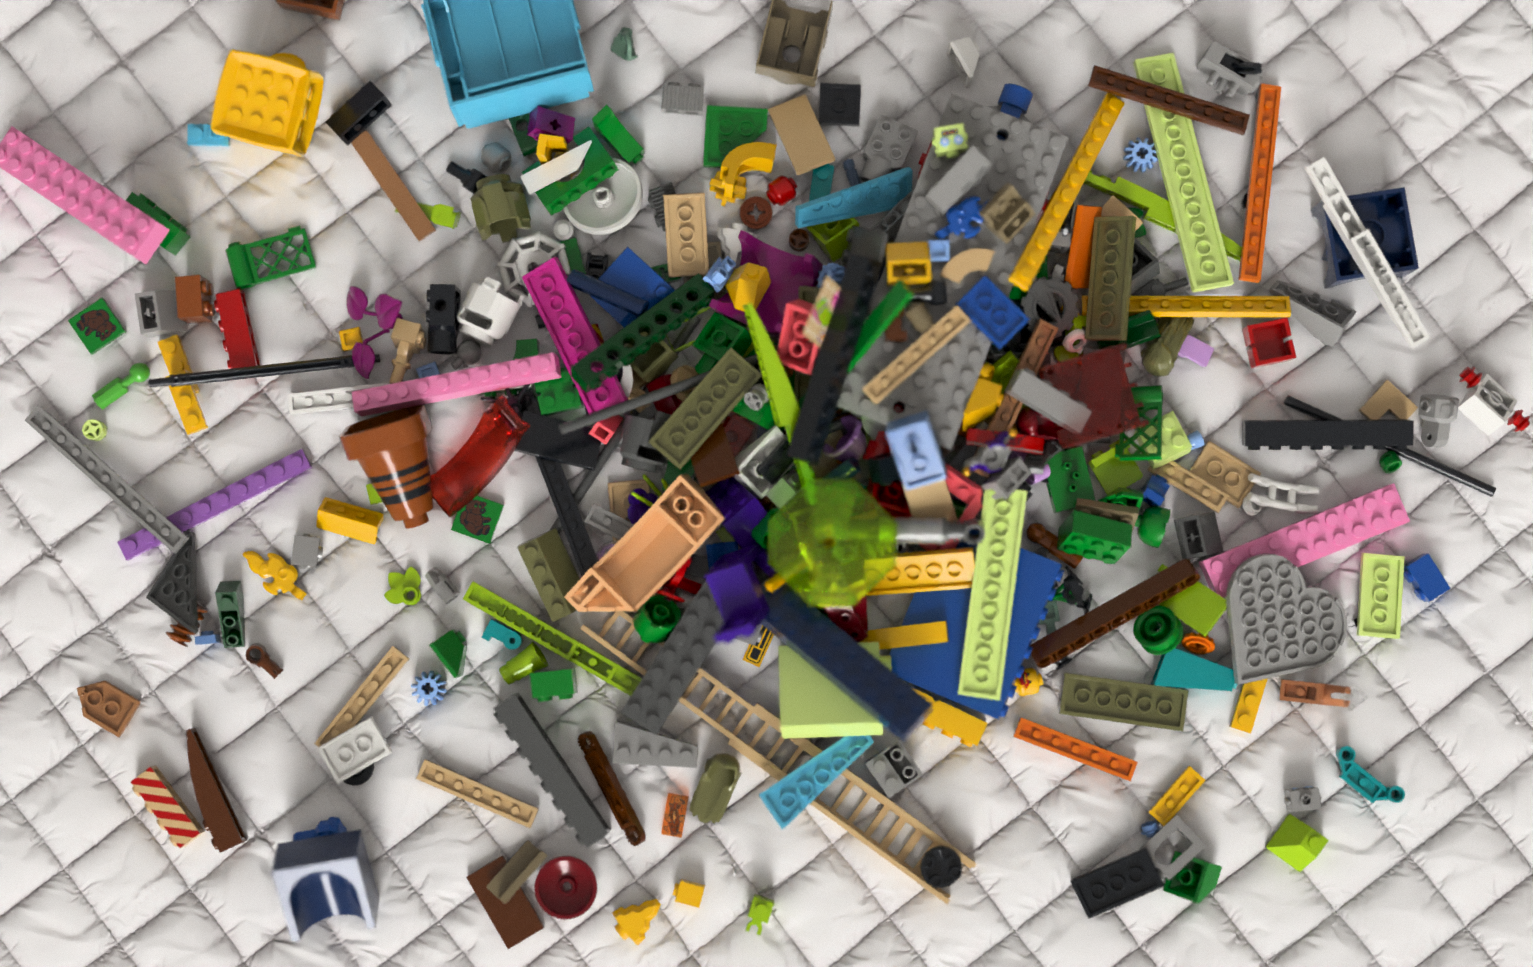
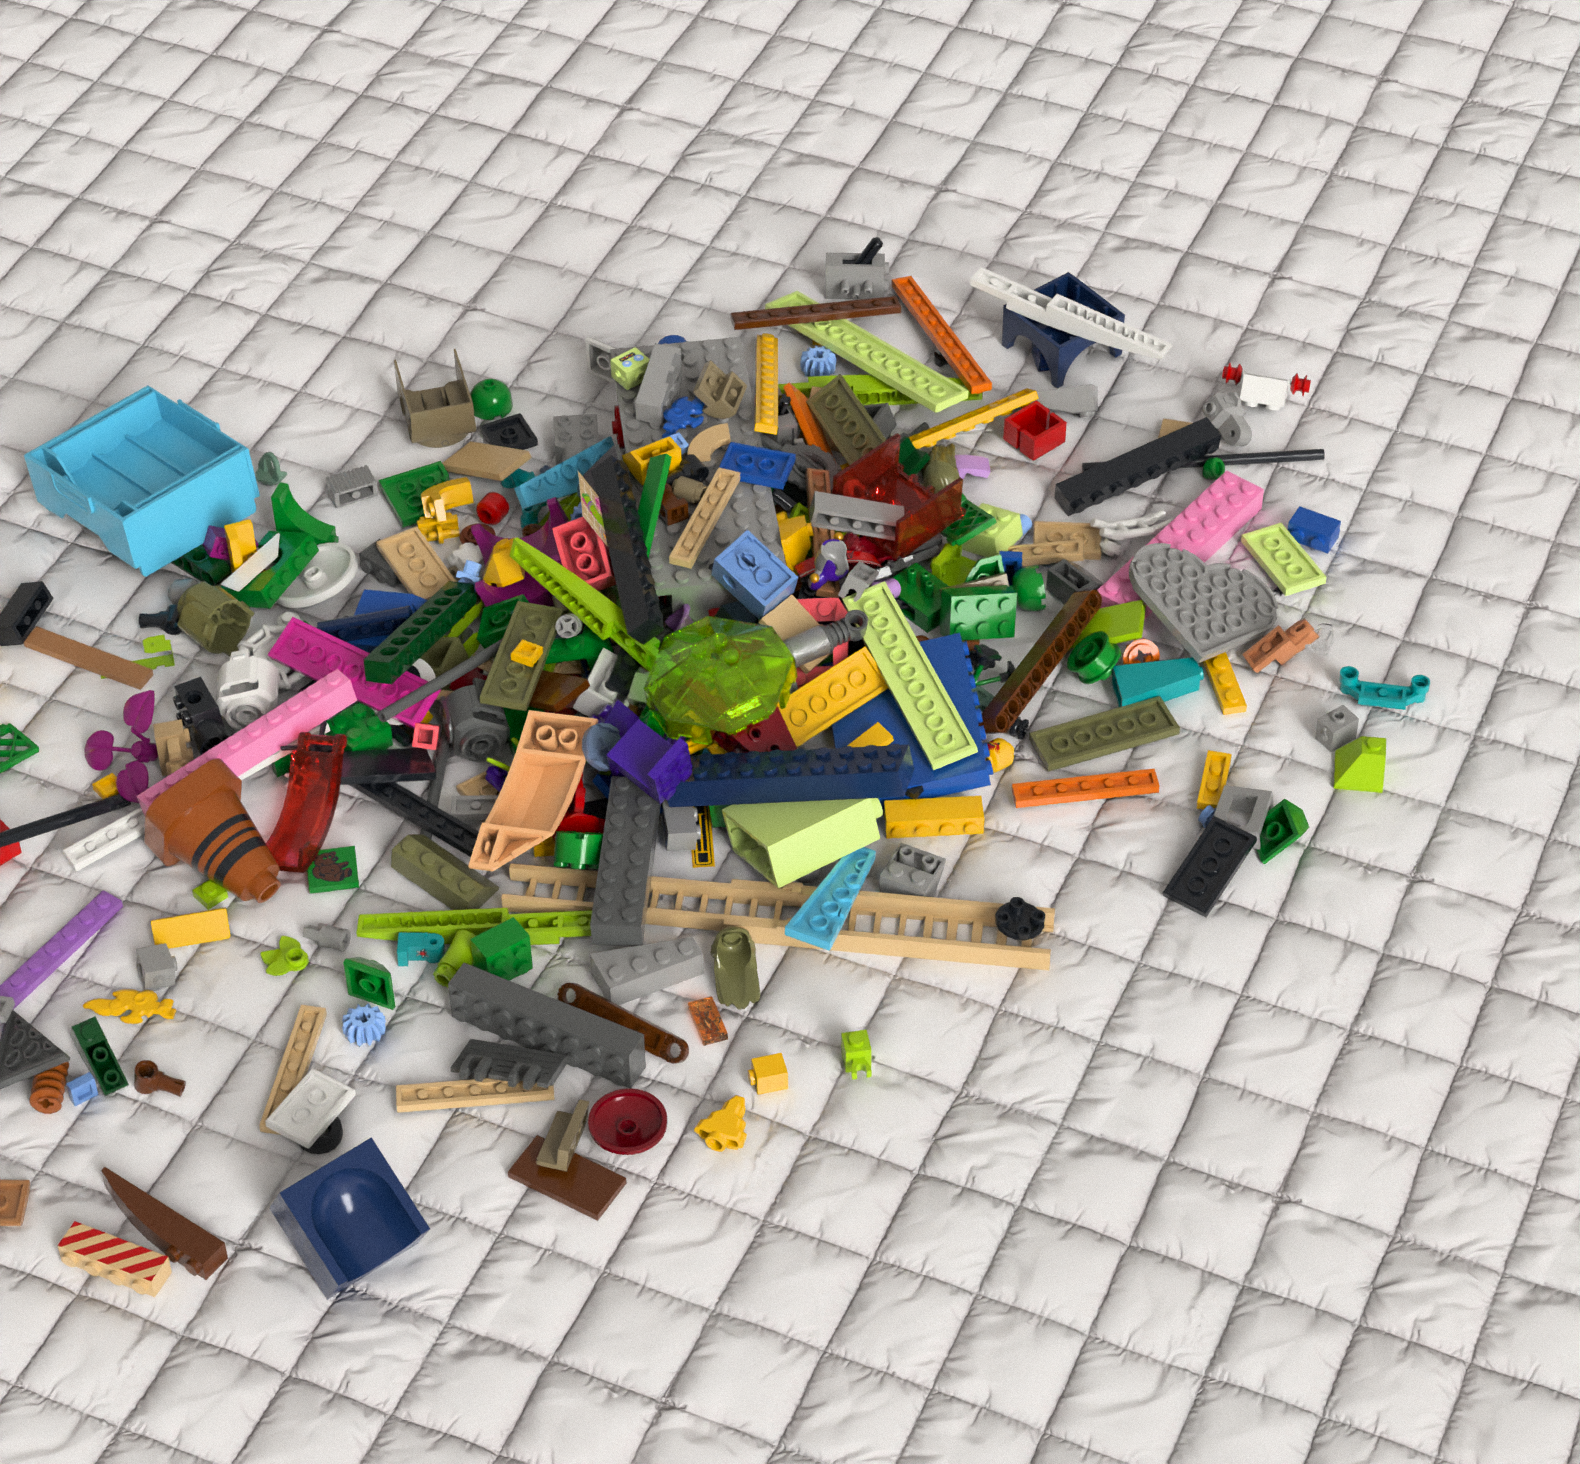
camera: 30 degrees left, 40 degrees down
(511, 785) = (509, 1064): none -> dark grey hinge
(706, 415) = (526, 653): none -> yellow tile
(718, 541) = (597, 743): none -> sand blue tile
(846, 51) = (491, 399): none -> green cylinder

